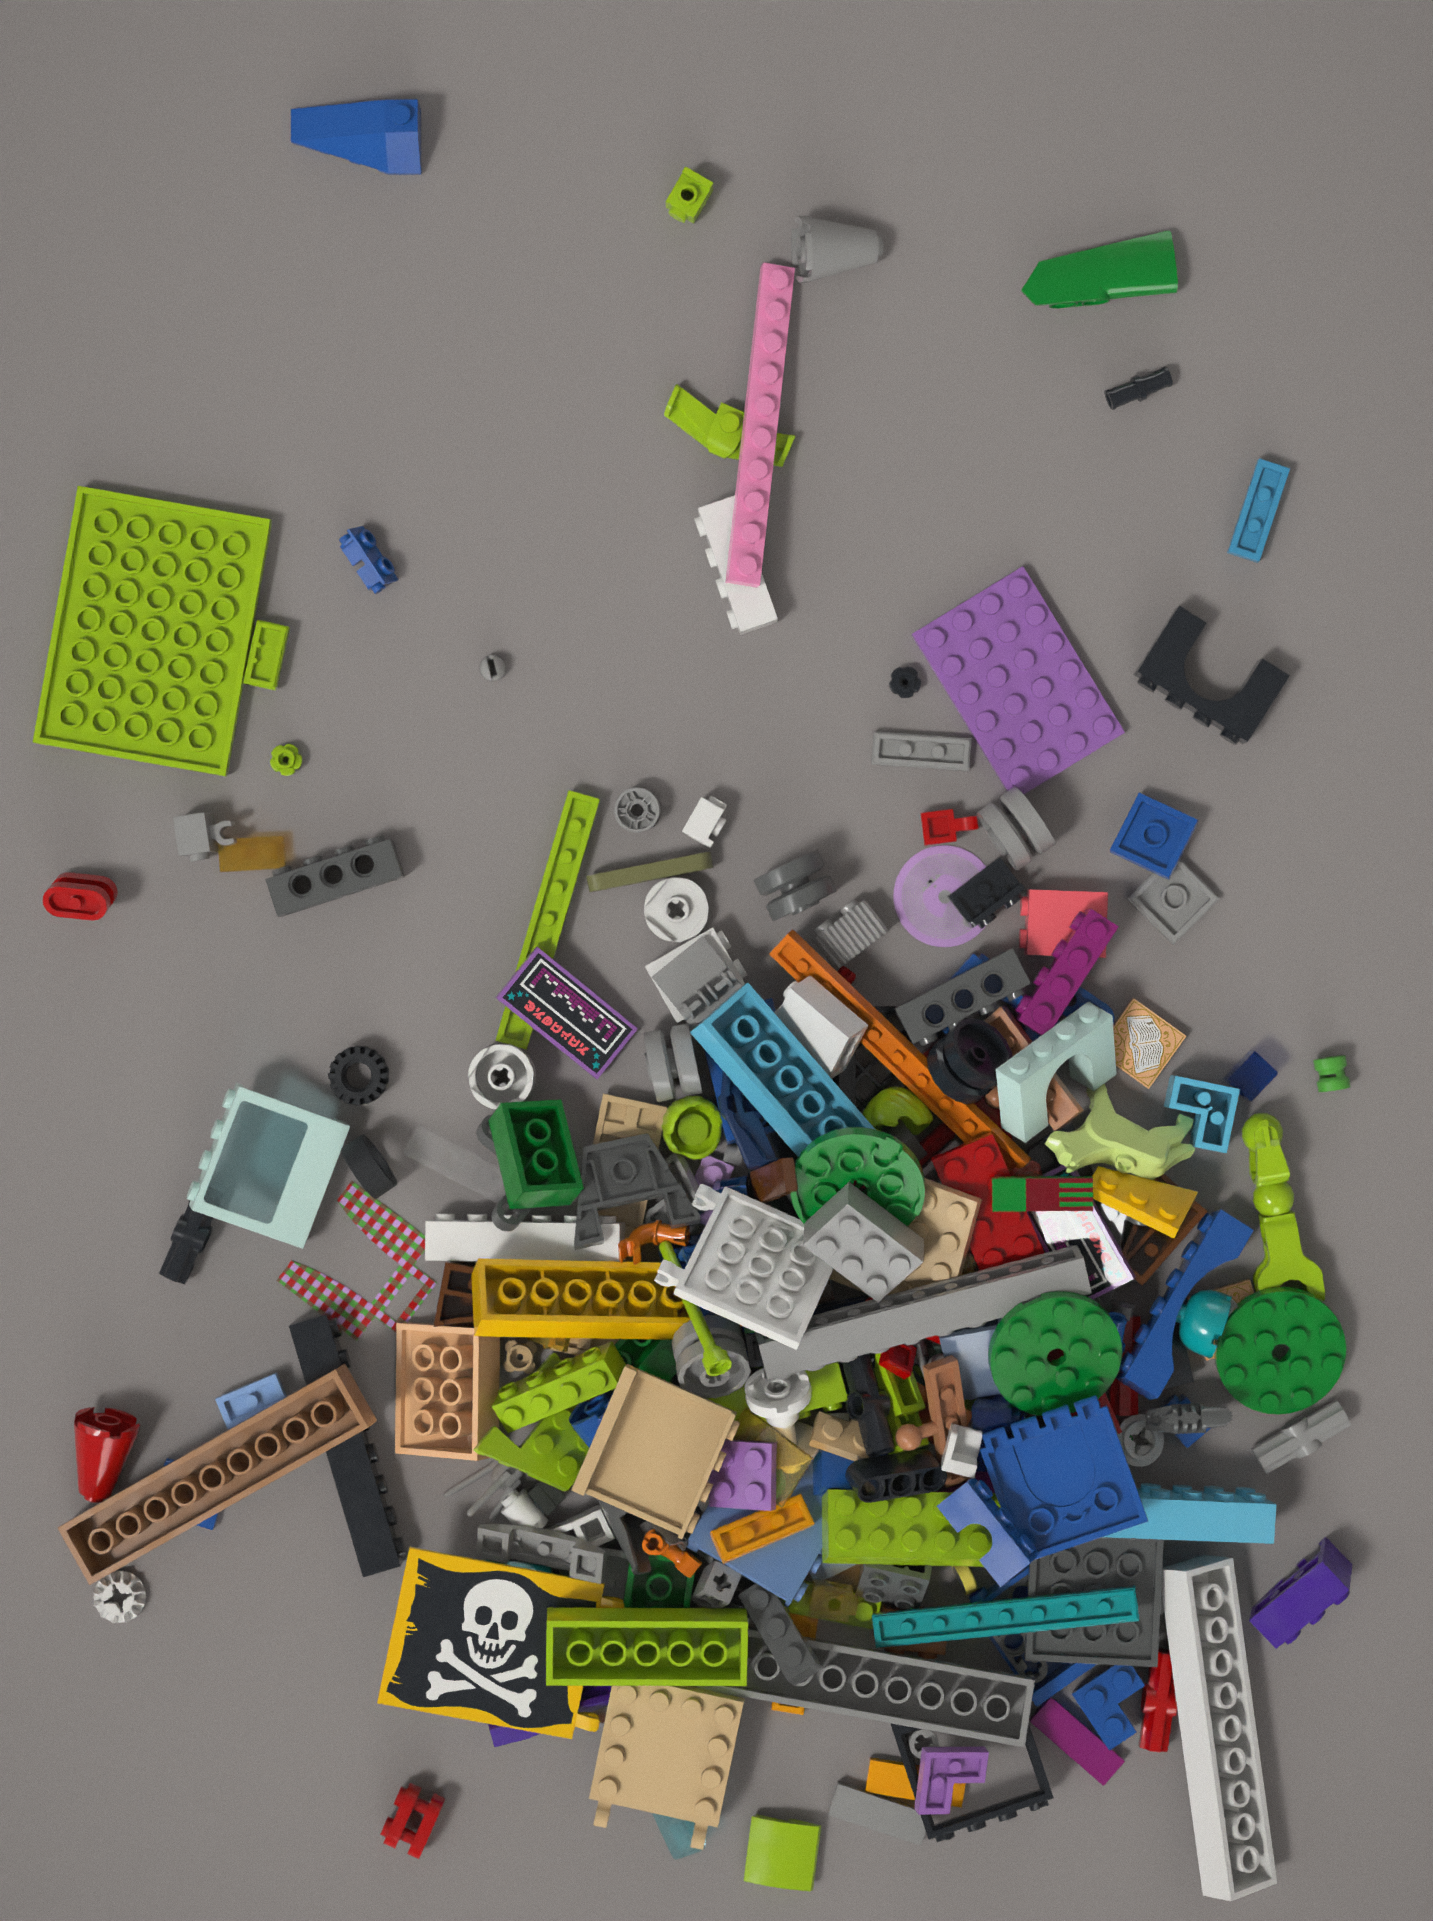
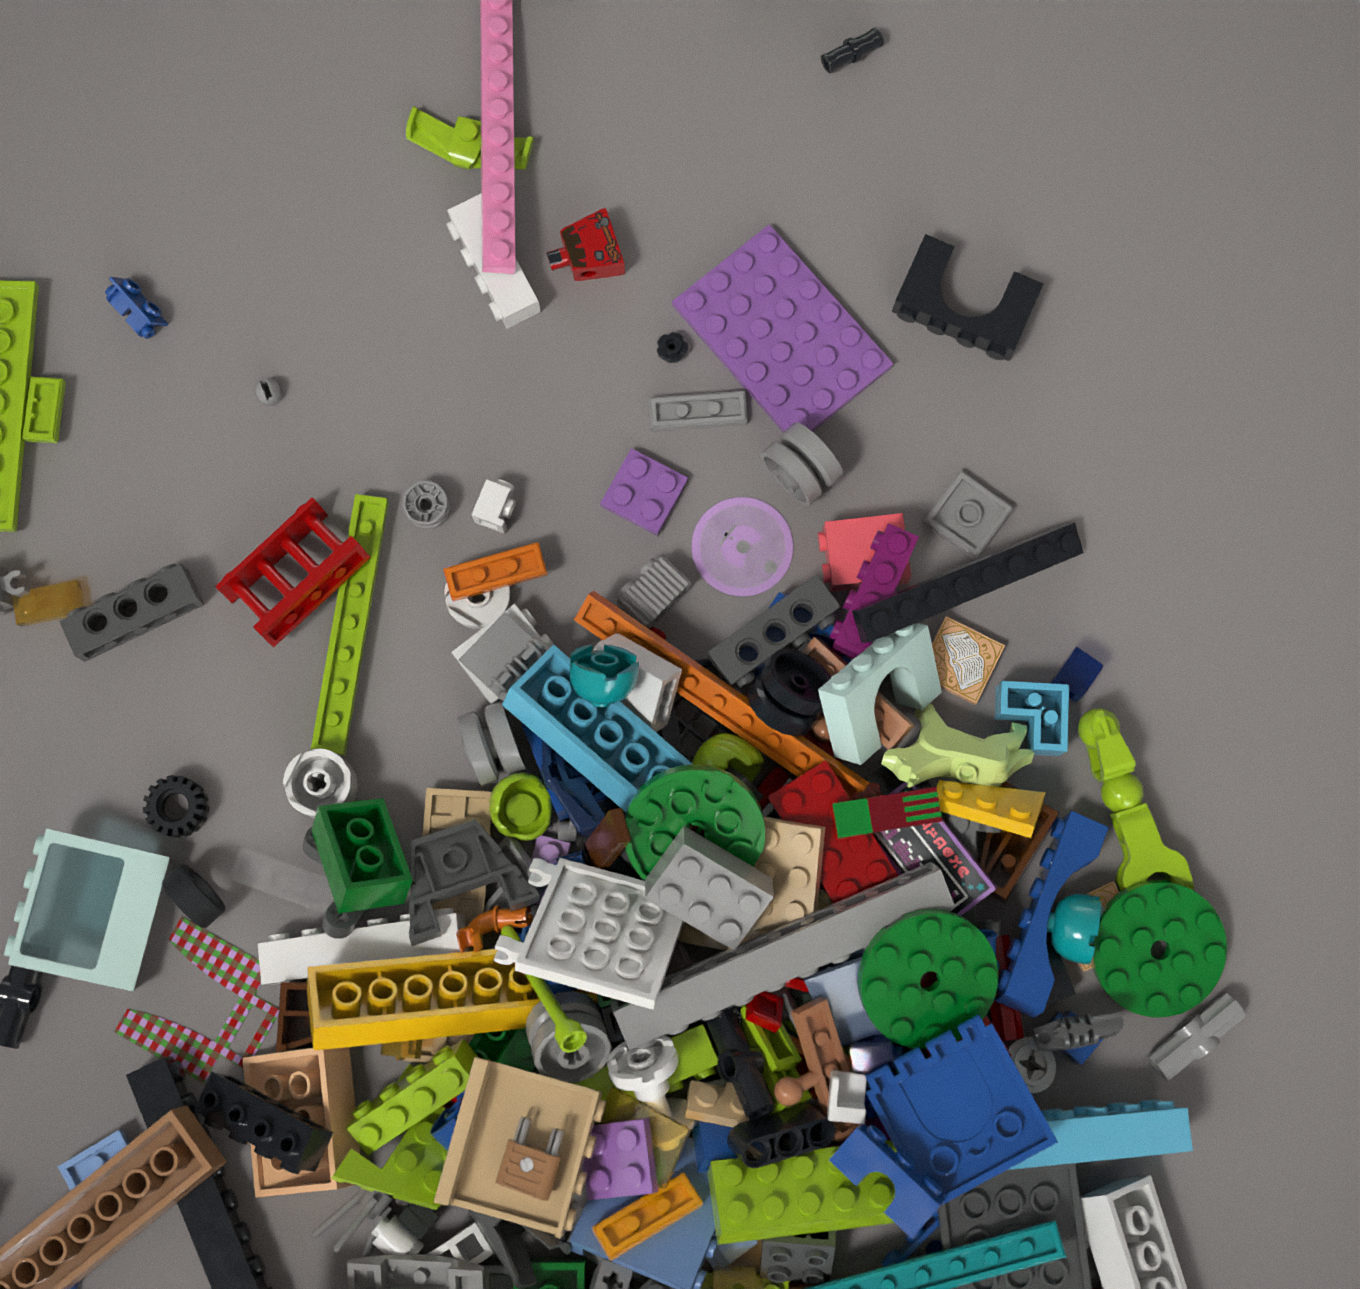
camera: 10 degrees left, 10 degrees down
(279, 753) = (81, 506): lime plate -> none
(413, 1389) = (262, 1122): none -> black brick
(513, 1363) = (366, 1068): tan plate -> none
(527, 874) = (311, 591): none -> red fence
(566, 1013) = (379, 711): tile -> none
(649, 872) = (432, 566): olive beam -> none
(660, 1471) = (529, 1167): none -> medium nougat piece
(684, 1561) = (570, 1265): orange piece -> none
(698, 891) = (495, 571): none -> orange tile
(792, 1022) = (603, 675): none -> teal cylinder
(795, 886) = (590, 550): dark grey wheel -> none
(835, 566) = (589, 249): none -> red torso
(855, 827) = (644, 492): none -> medium lavender plate
(941, 826) = (729, 478): red plate -> none
(965, 1579) = (872, 1241): light yellow tile -> none
(986, 893) = (782, 534): black bracket -> none
(1154, 836) = (938, 455): blue plate -> none
(1160, 974) = (966, 582): none -> black plate
(1258, 510) = (985, 143): dark azure plate -> none
(1303, 1595) = (1231, 1207): dark purple wedge -> none
(1328, 1066) = (1154, 653): bright green wheel -> none

